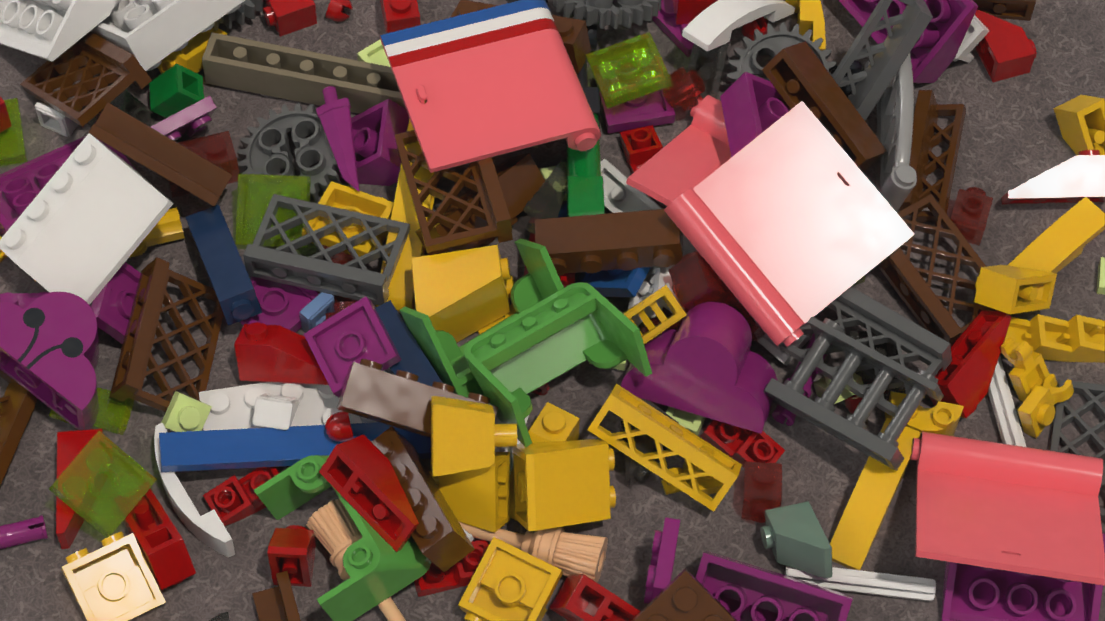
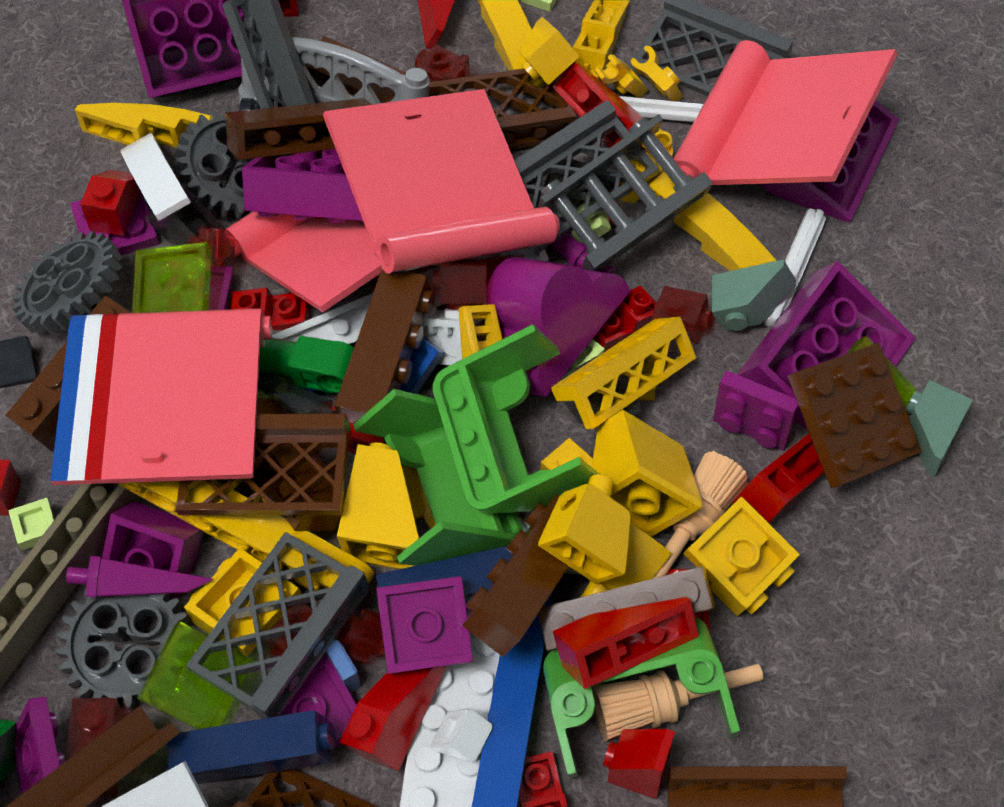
camera: 70 degrees left, 0 degrees up
(339, 427) = (507, 669): red hinge -> none

